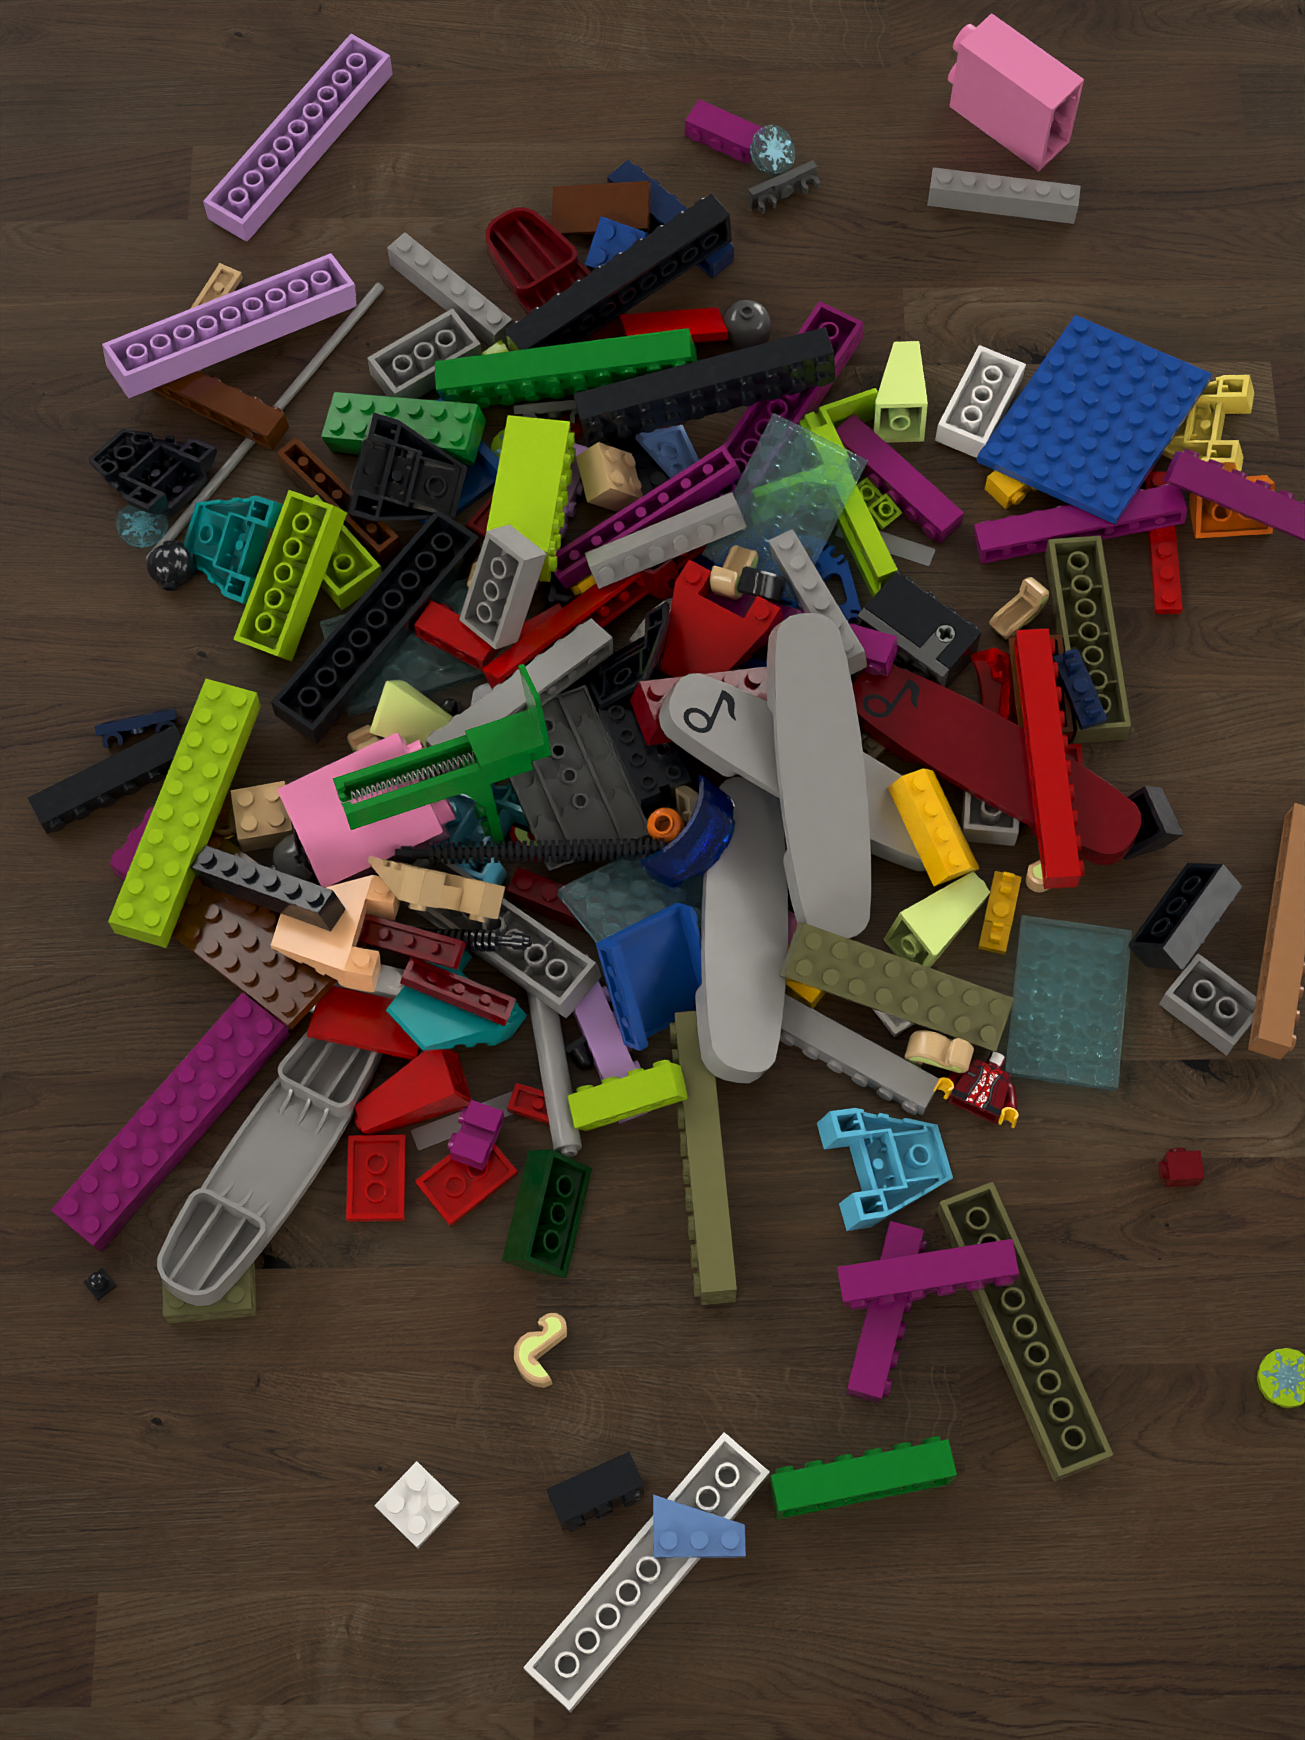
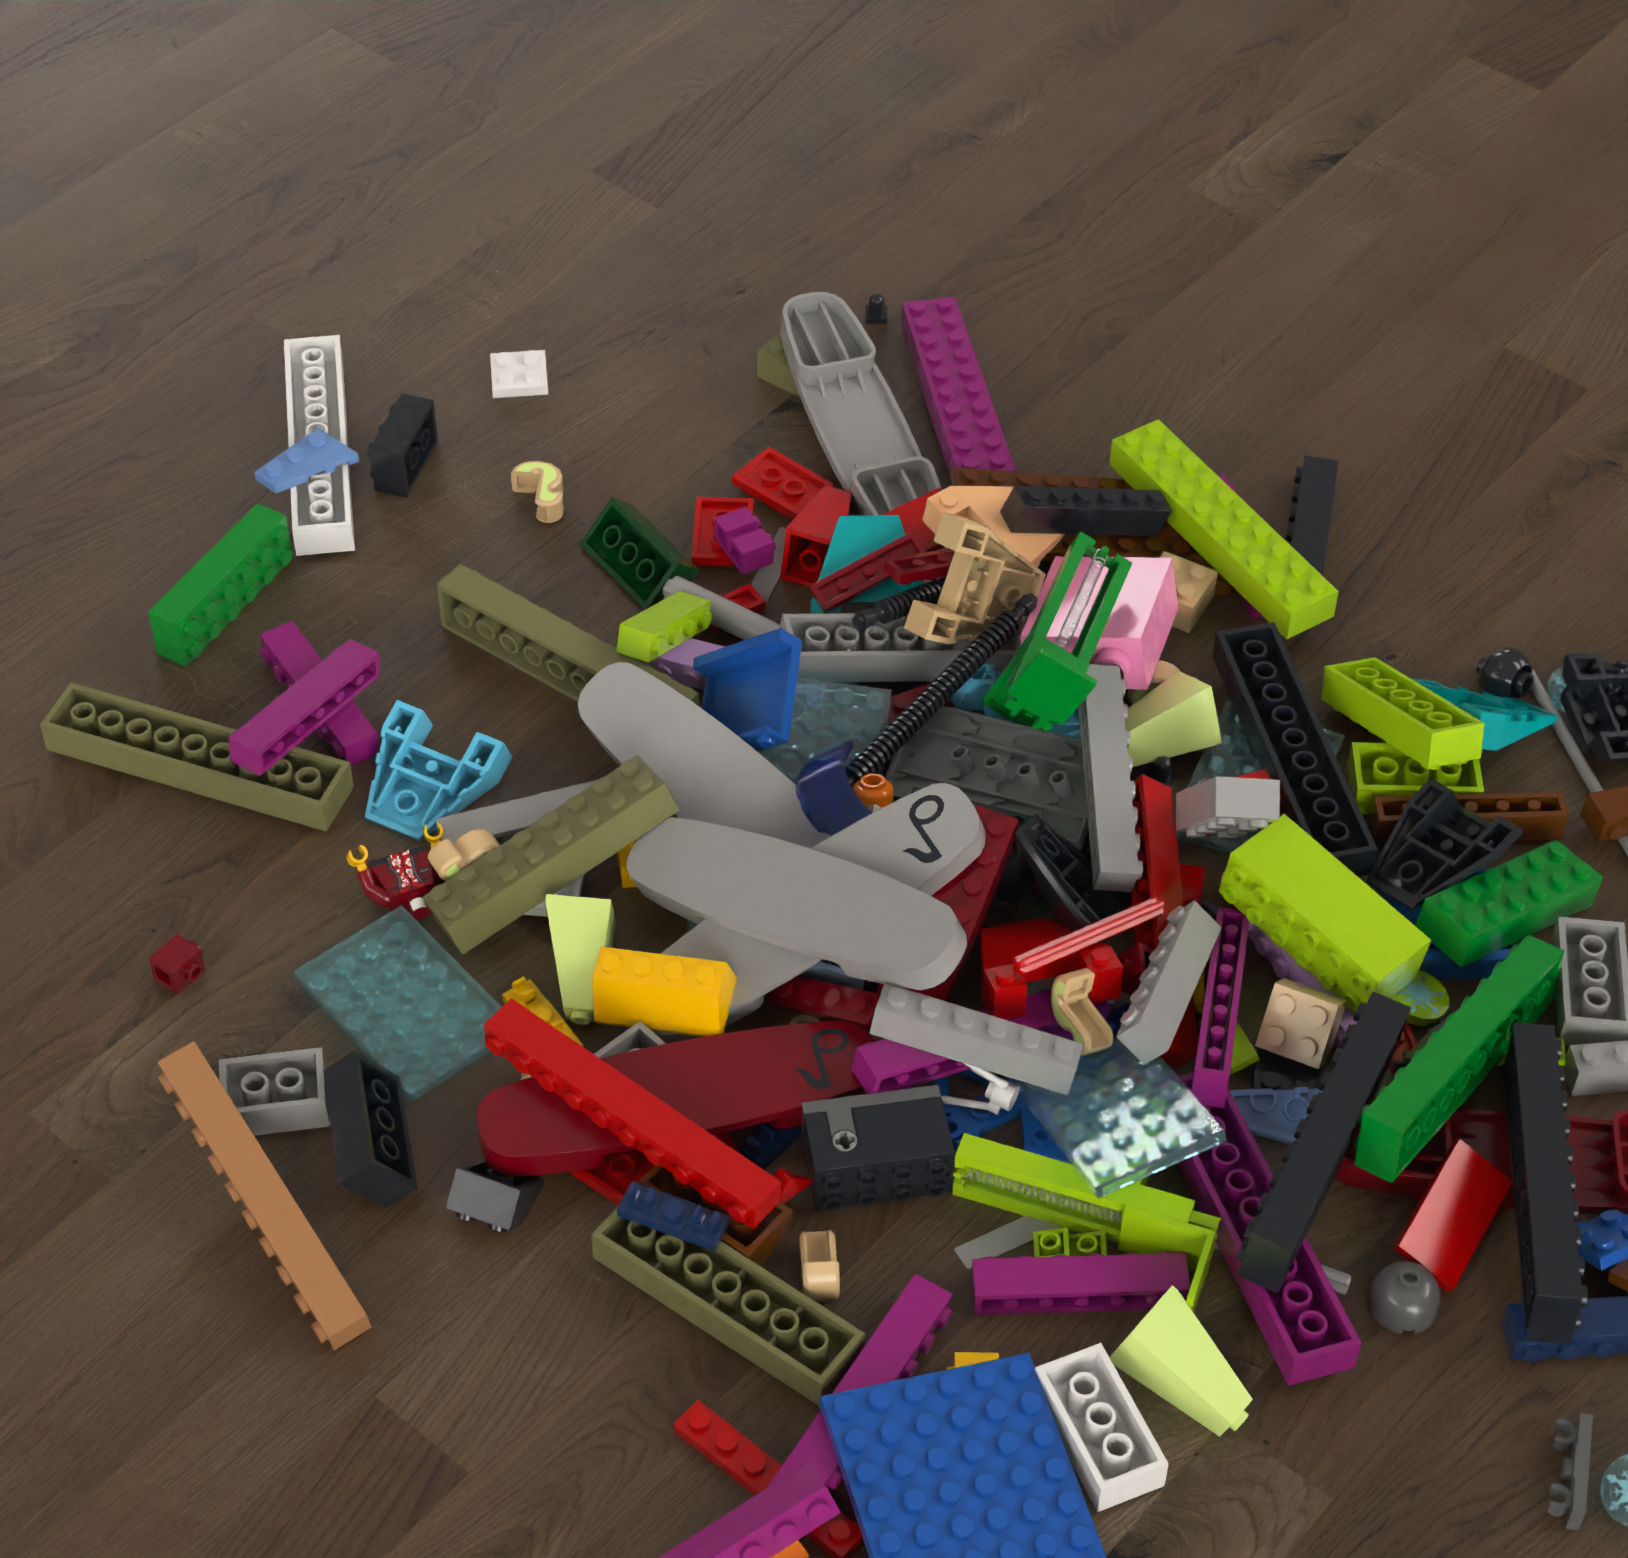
camera: 130 degrees right, 20 degrees down
(135, 724) = (1355, 567): dark blue plate -> none
(680, 596) = (1088, 936): none -> axle
(761, 584) = (1037, 1005): black animal -> none

